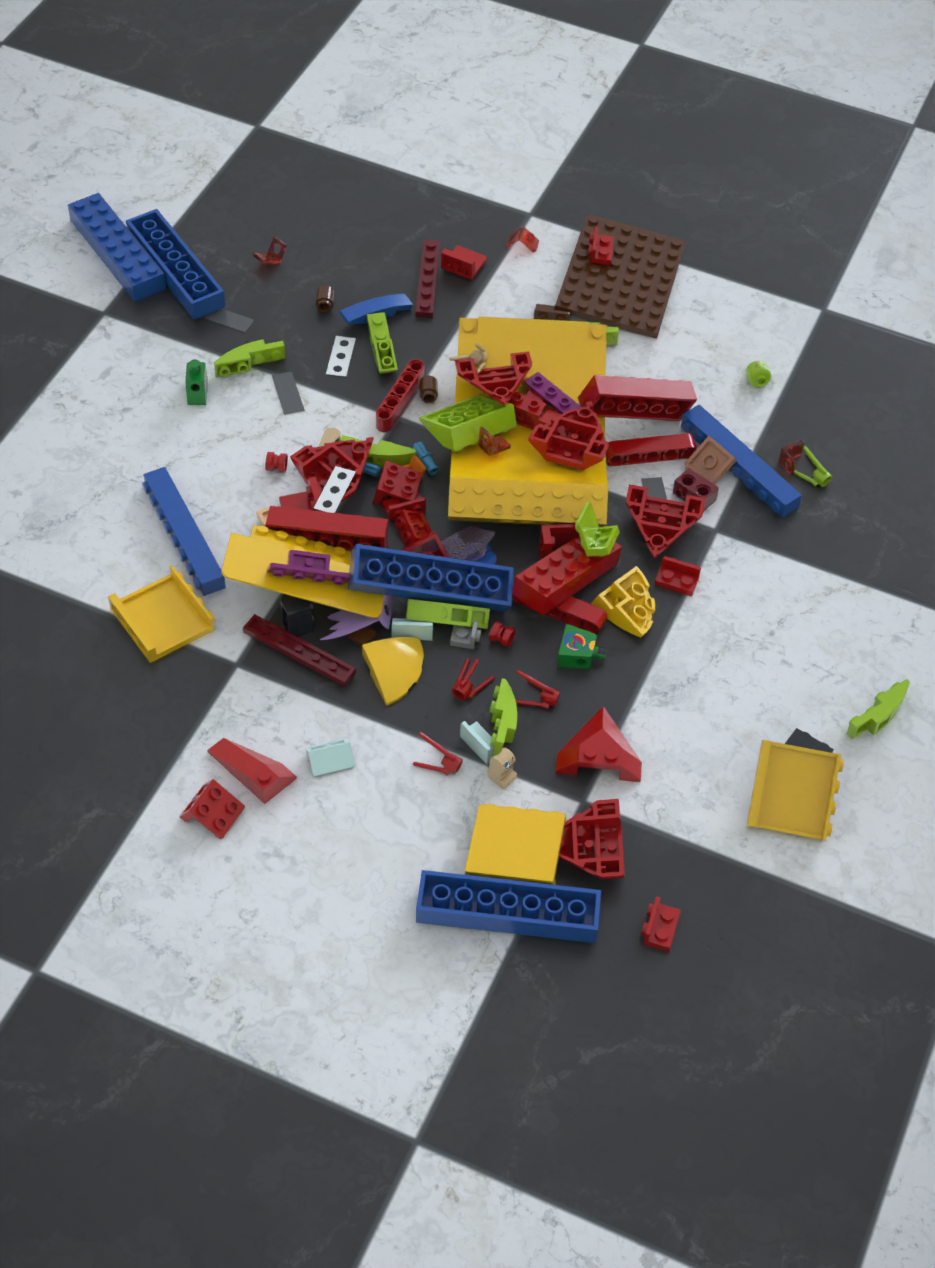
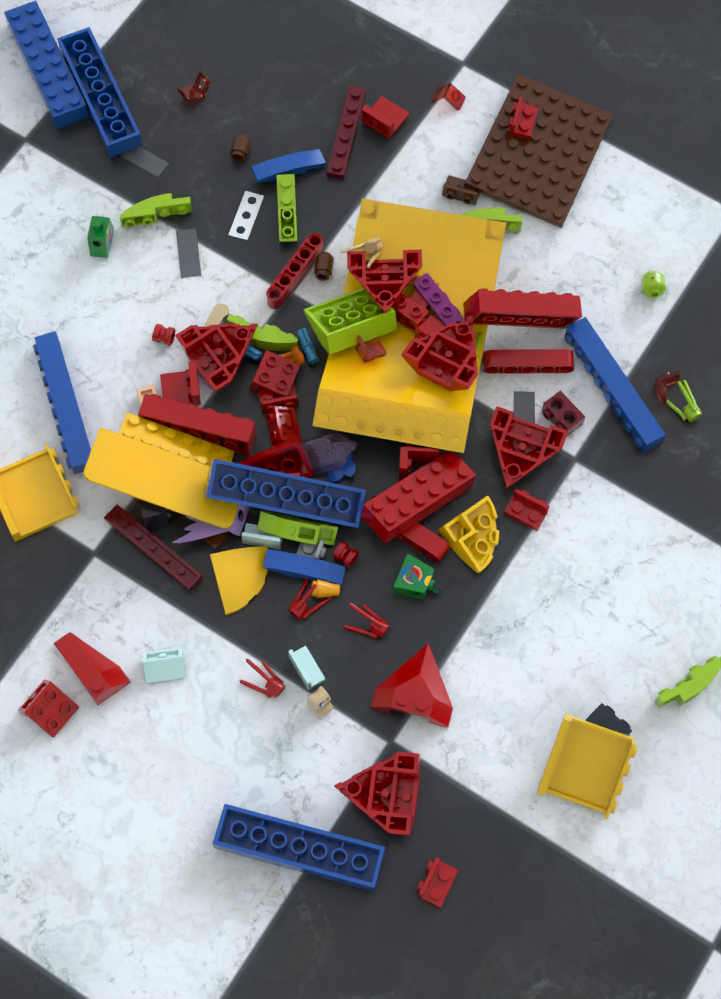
camera: 10 degrees right, 15 degrees up
(308, 565) = (167, 470): magenta bracket -> none
(334, 490) = (211, 379): white sticker -> none
(460, 649) = (303, 567): none -> blue slope
(487, 668) = (325, 589): none -> light orange cone
(503, 716) = (332, 646): lime slope -> none
(515, 844) = (316, 786): yellow panel -> none
(595, 539) = (448, 468): lime bracket -> none
(710, 460) = (583, 384): nougat plate -> none

